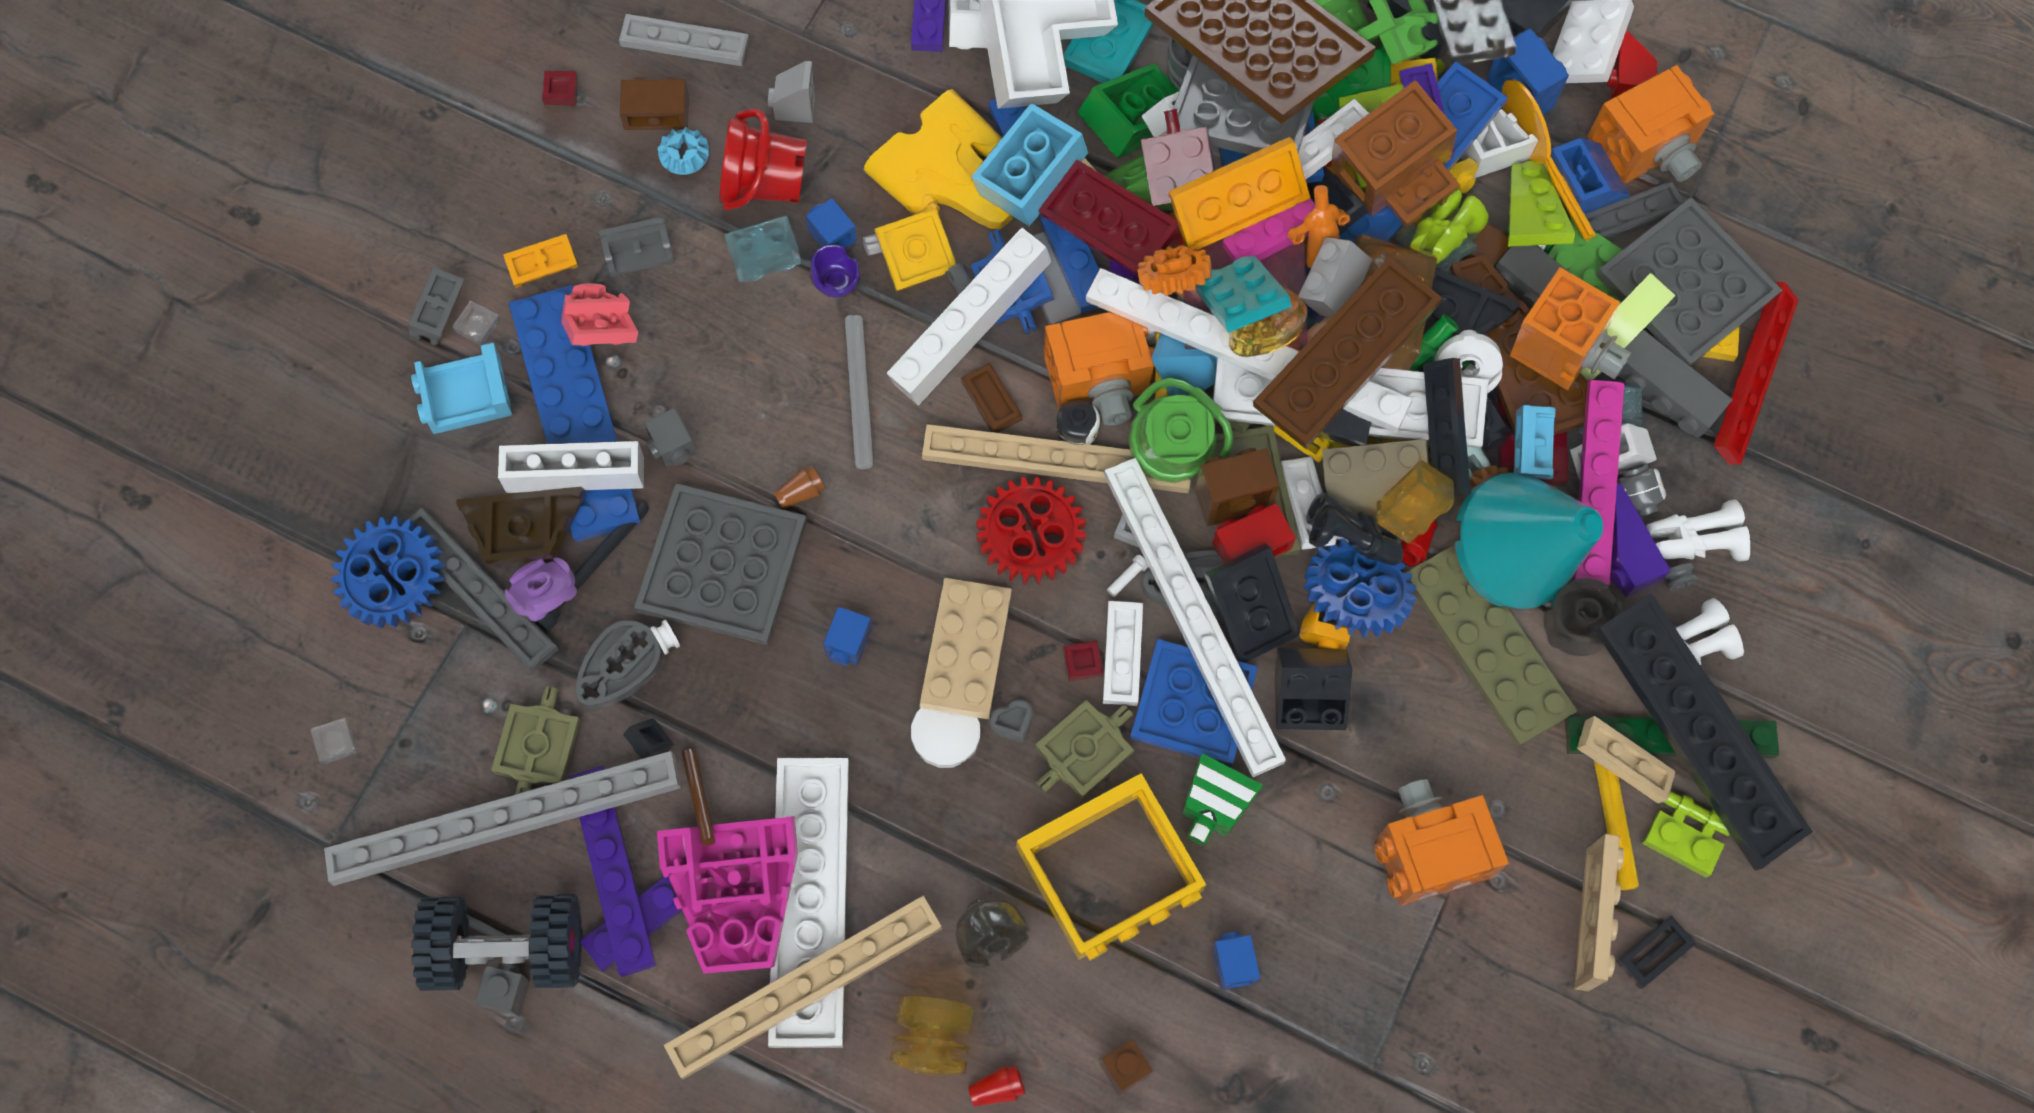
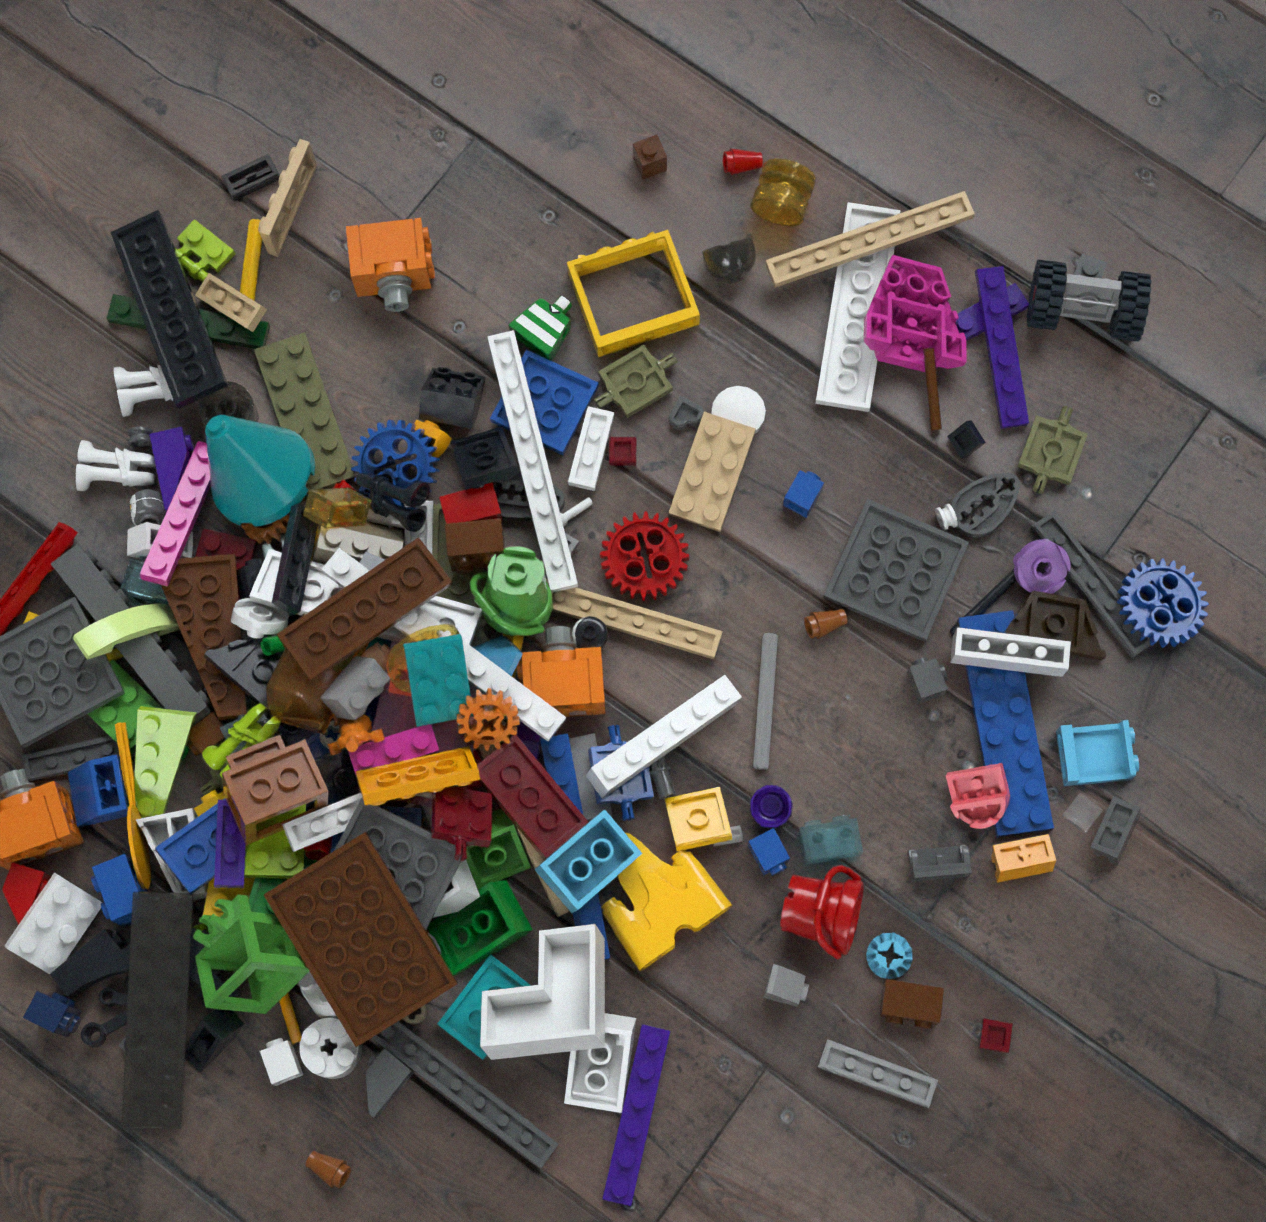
camera: 165 degrees left, 5 degrees up
(333, 741) = (1207, 478): clear plate -> none
(502, 818) = (1080, 392): light grey plate -> none
(991, 398) = (656, 678): reddish brown tile -> none
(1235, 961) = (556, 213): blue brick -> none
(1534, 441) = (226, 544): medium azure hinge -> none
(1570, 332) = (176, 605): orange piece -> none

